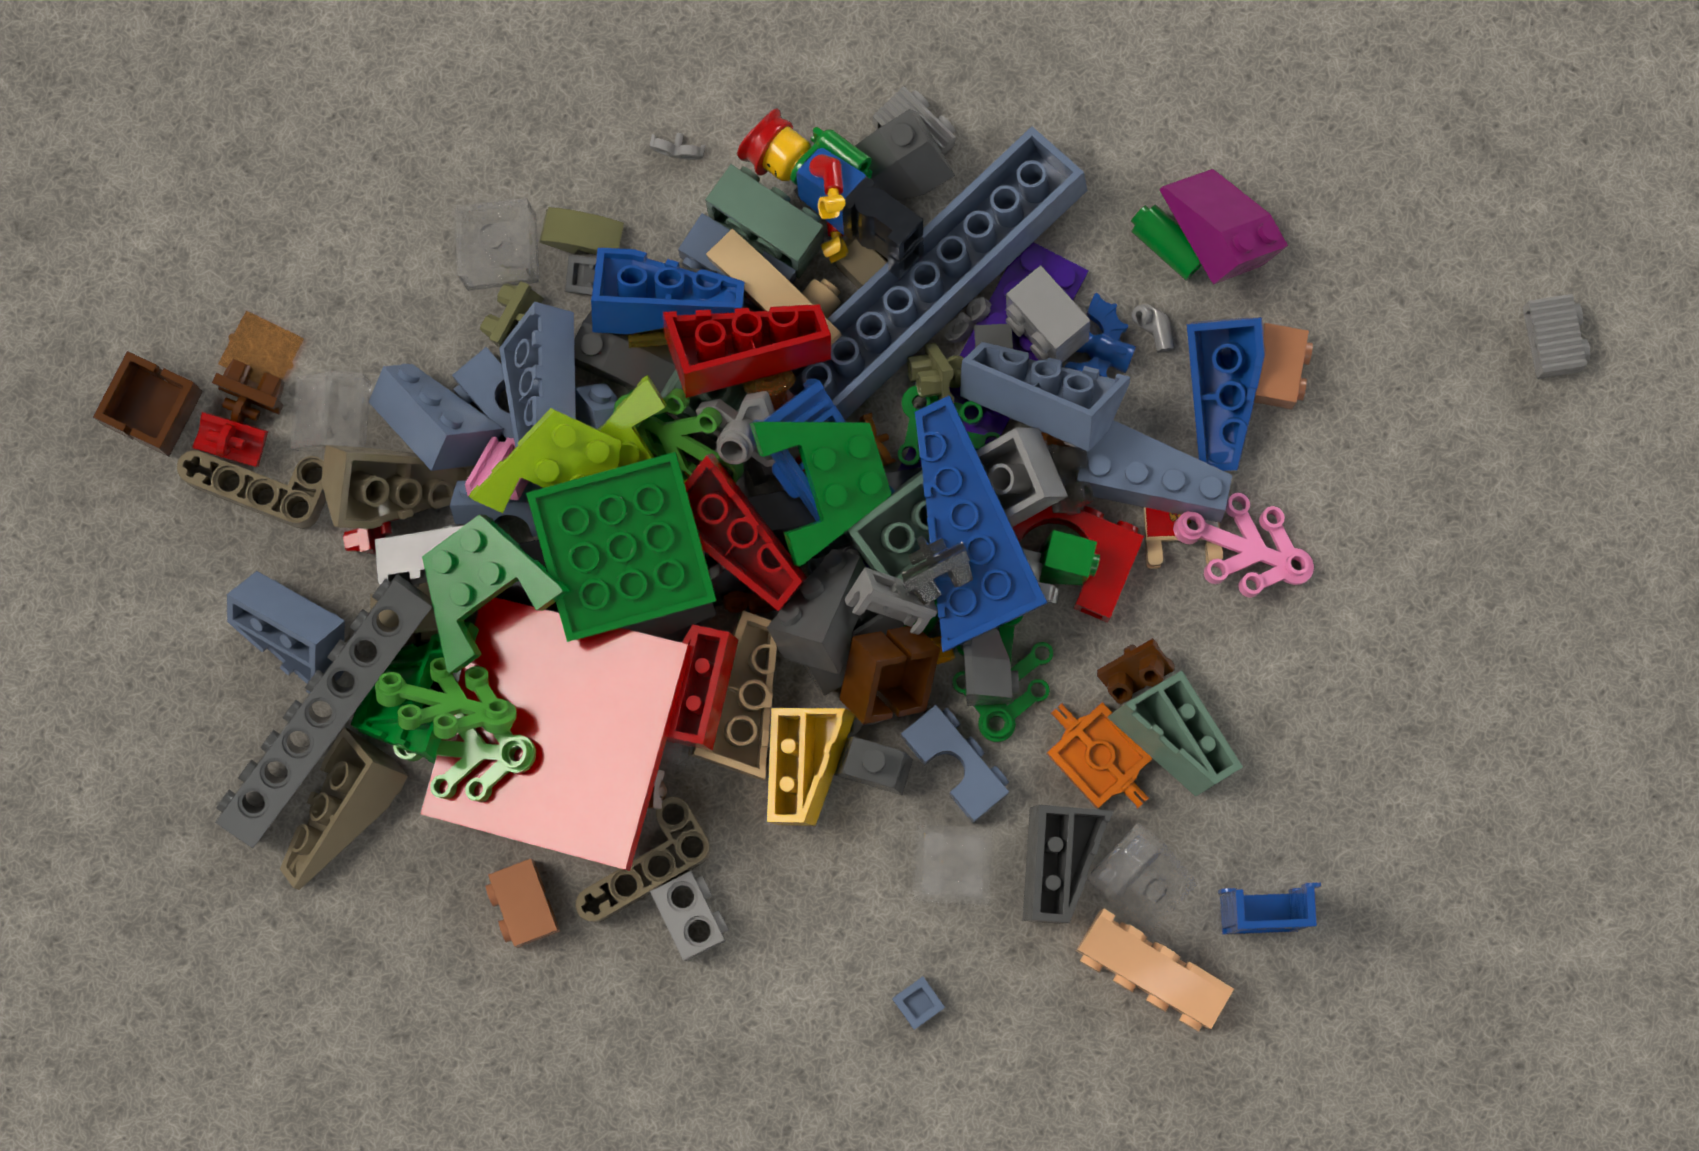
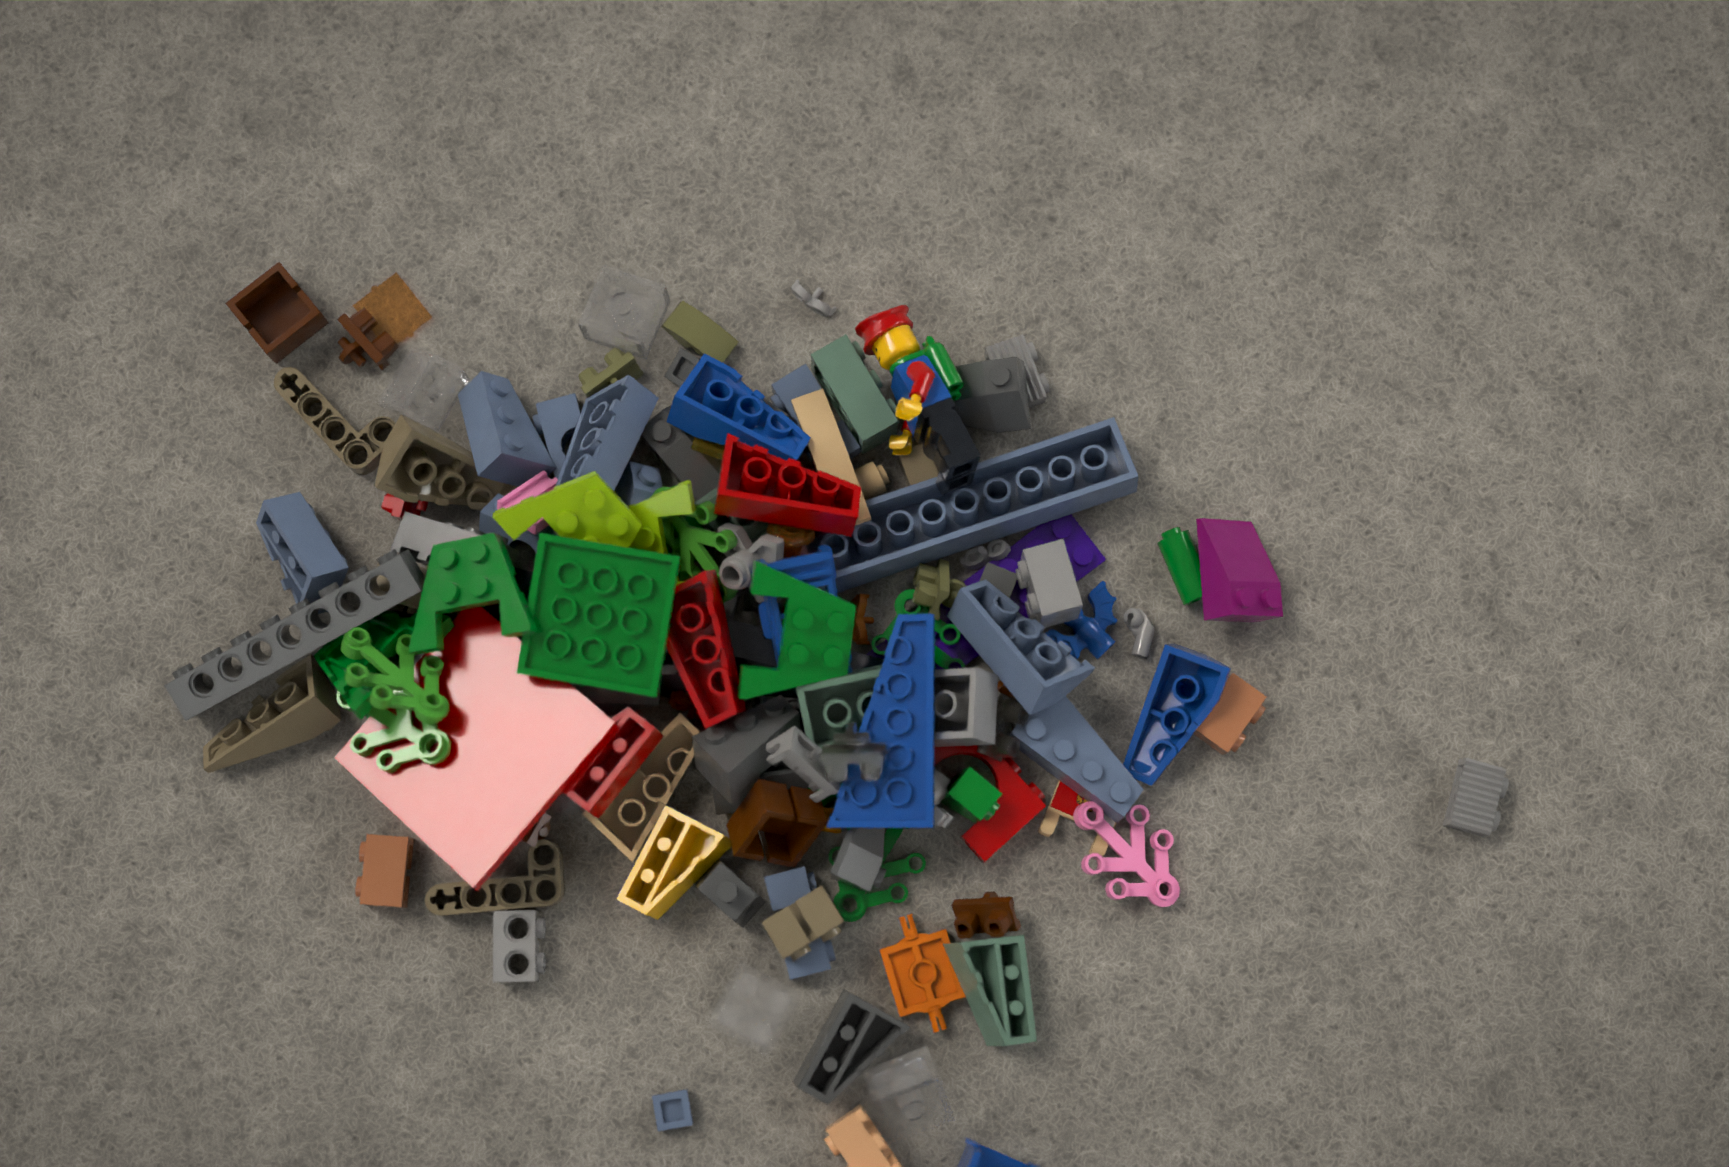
camera: 20 degrees right, 0 degrees up
(230, 439) = (330, 373): red hips -> none
(962, 757) = (802, 923): none -> dark tan piece

